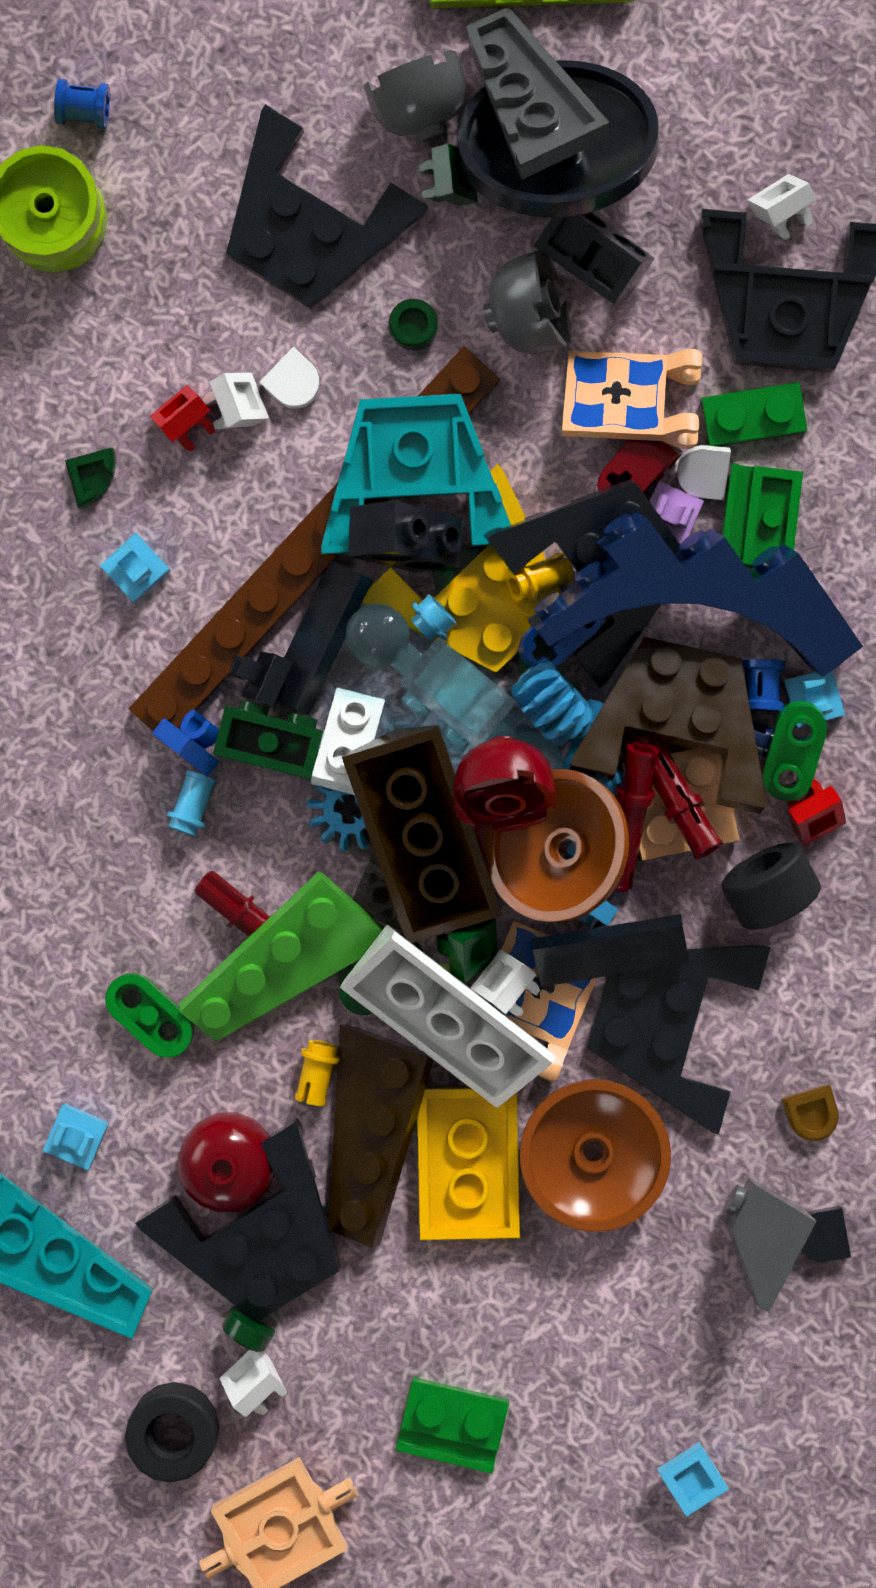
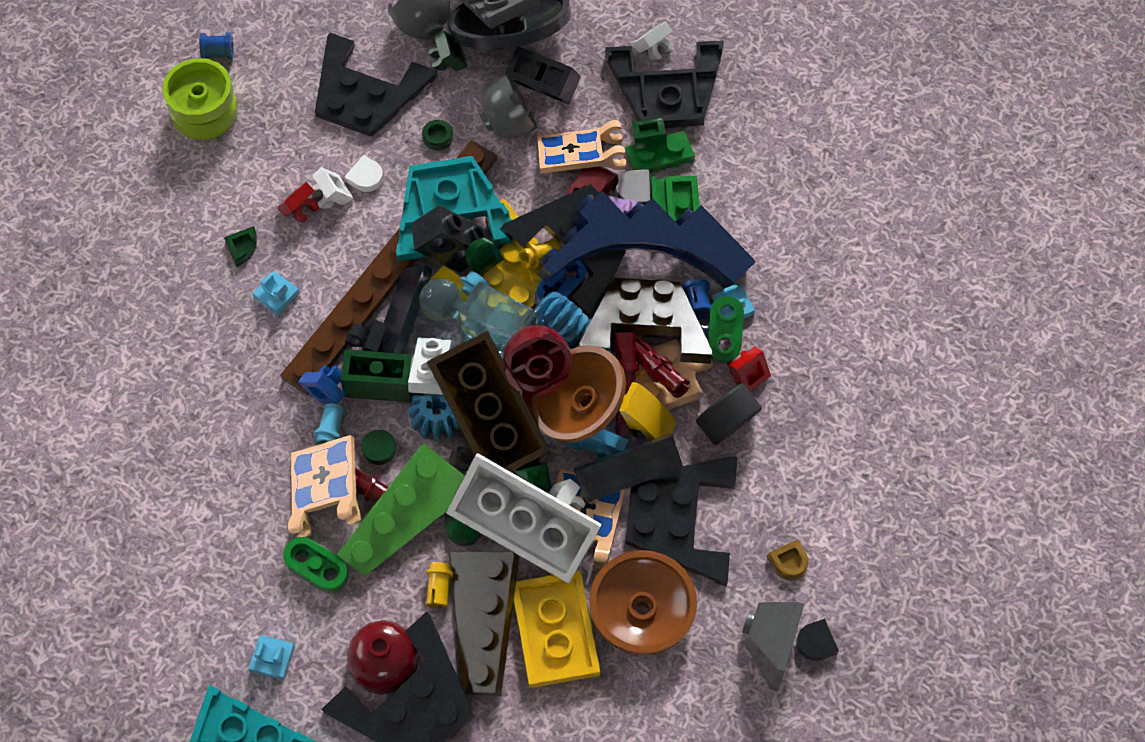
camera: 10 degrees left, 25 degrees down
(173, 892) = (322, 479): none -> light nougat flag
(258, 845) = (378, 447): none -> dark green tile
(451, 574) = (482, 256): none -> dark green tile
(654, 875) = (646, 413): none -> yellow slope
(744, 385) = (649, 133): none -> dark green tile

